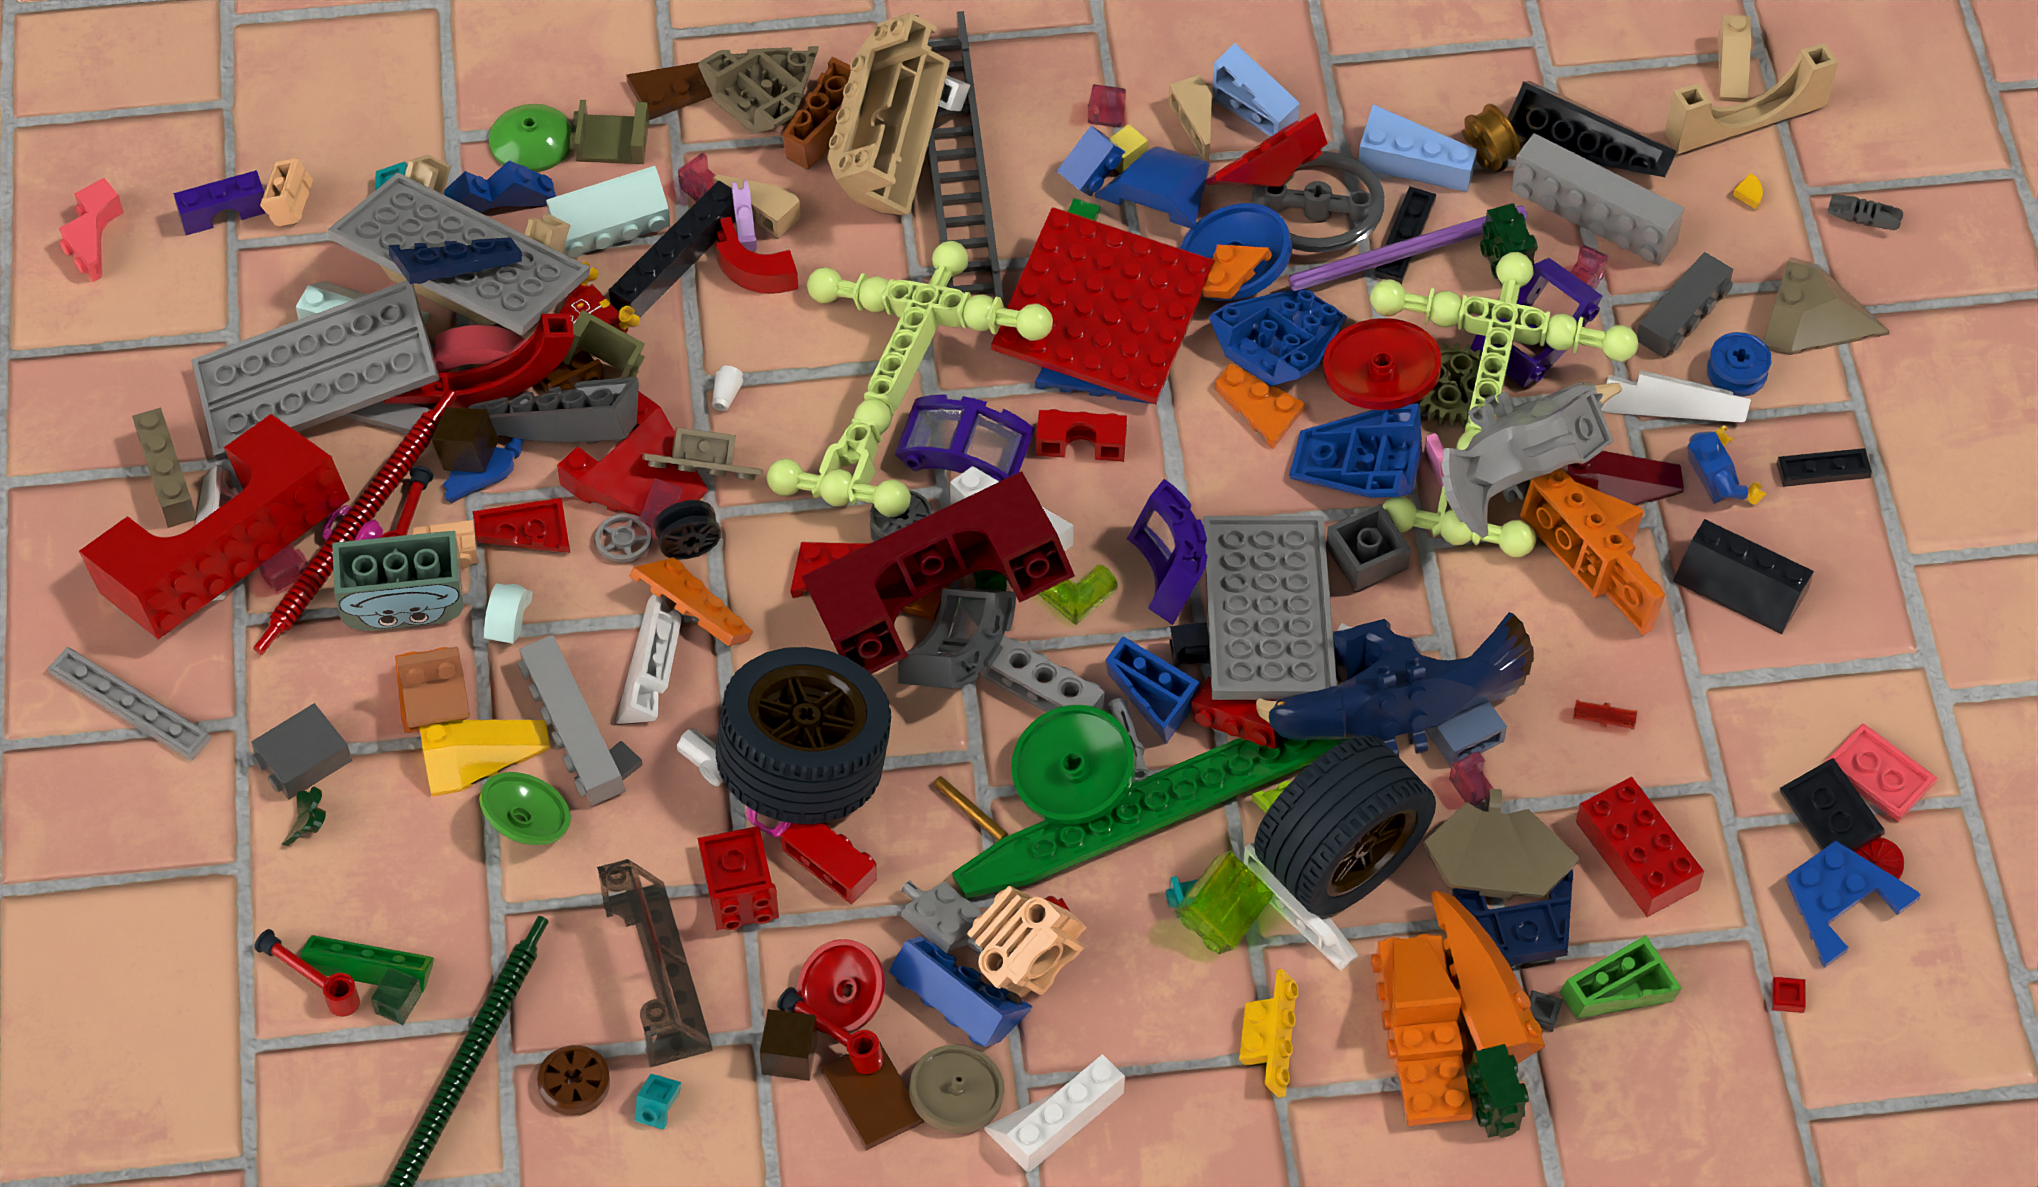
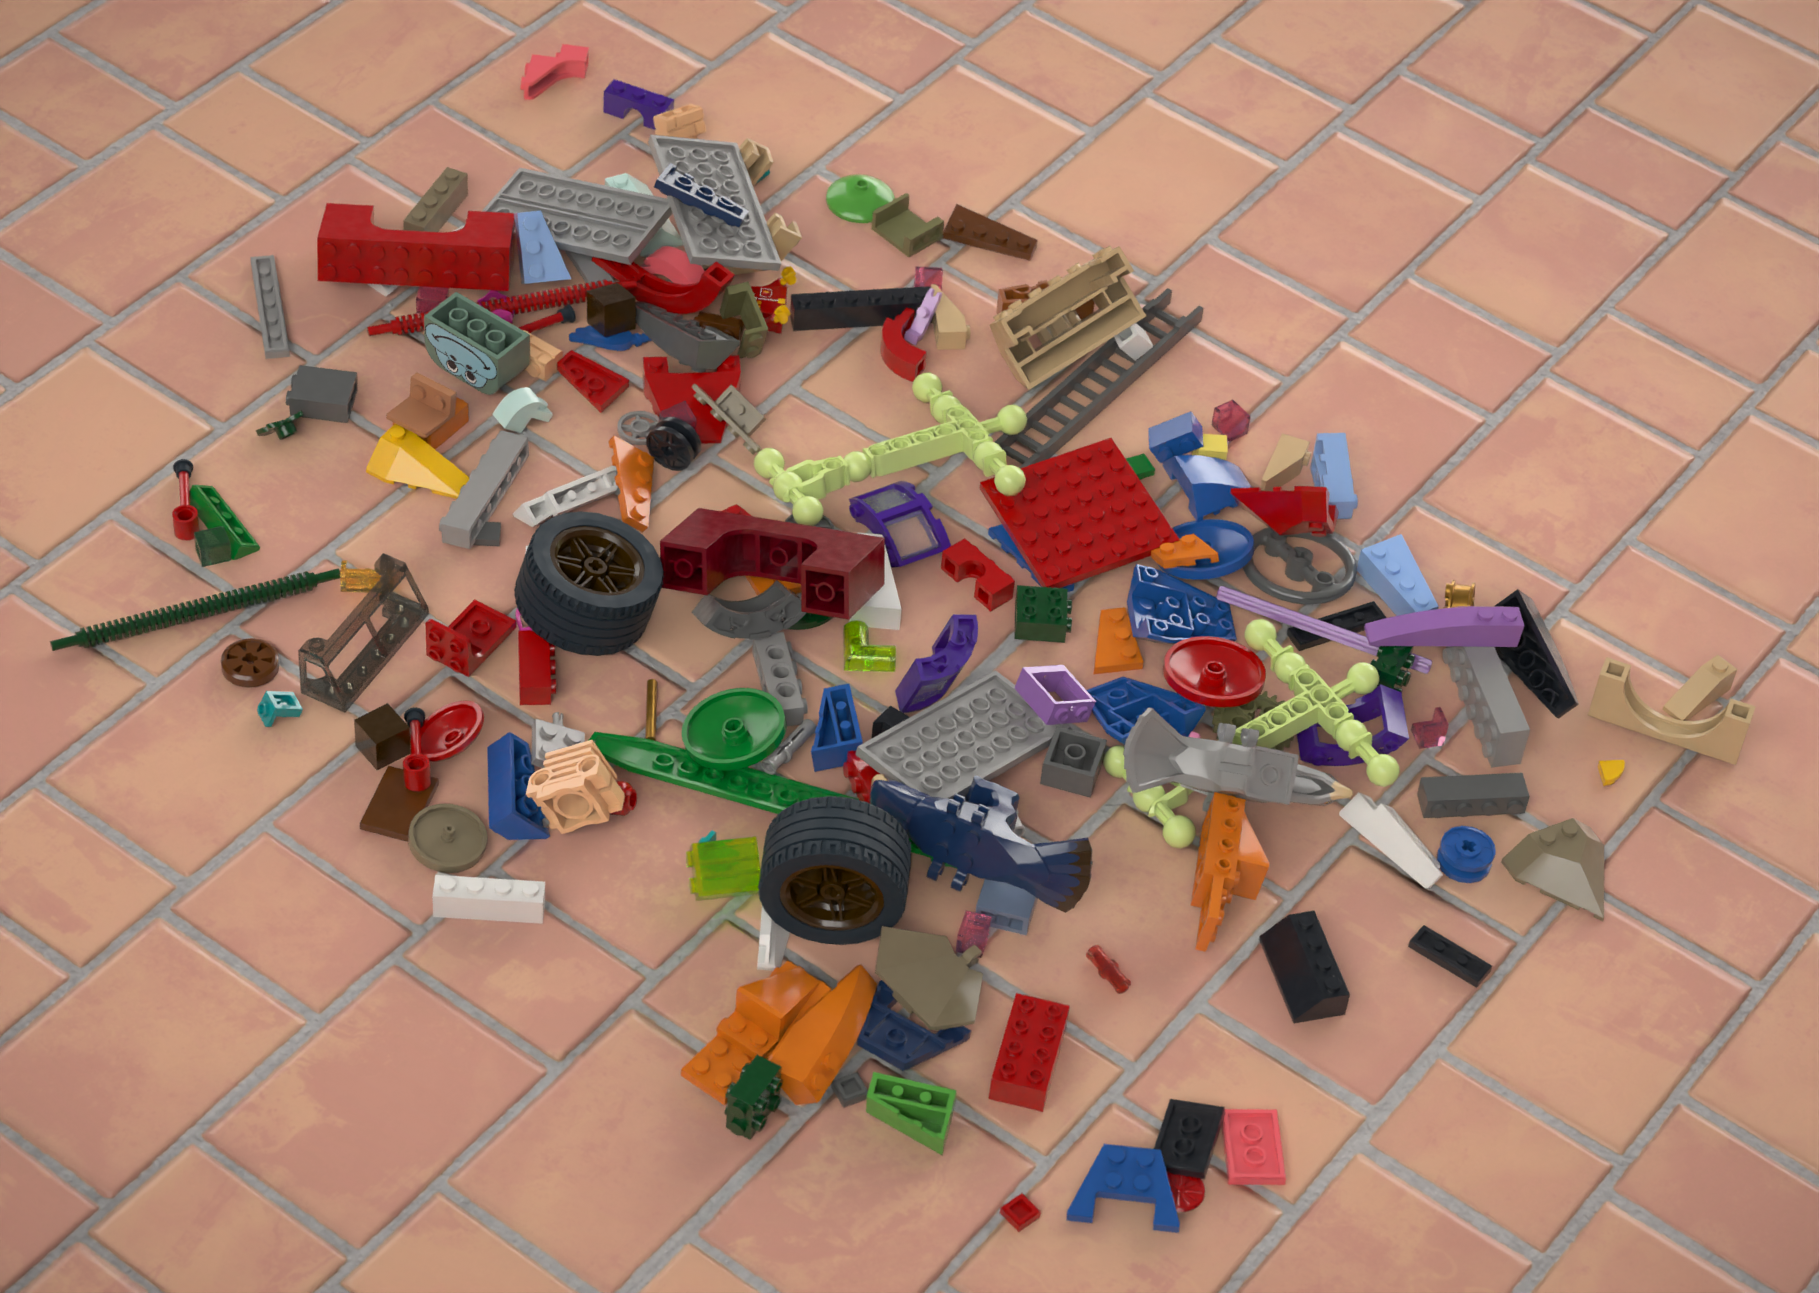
camera: 40 degrees right, 10 degrees down
(332, 431) = (537, 250): none -> light blue wedge
(506, 187) = (807, 208): blue arch -> none
(524, 808) = (398, 508): bright green dish -> none
(572, 901) = (357, 579): none -> clear yellow hinge
(611, 211) = (845, 258): light aqua slope -> none
(726, 386) = (800, 396): white cone -> none
(759, 85) = (1025, 258): dark tan wedge -> none
(1179, 428) = (1042, 614): none -> dark green brick
(1269, 1033) = (667, 961): yellow bracket -> none
(1285, 483) = (1034, 689): none -> medium lavender window
(1529, 160) = (1450, 627): none -> medium lavender wedge
(1628, 477) = (1296, 854): dark red wedge -> none
(1717, 469) = (1366, 891): blue torso -> none
(1865, 212) = (1677, 839): dark grey hinge -> none

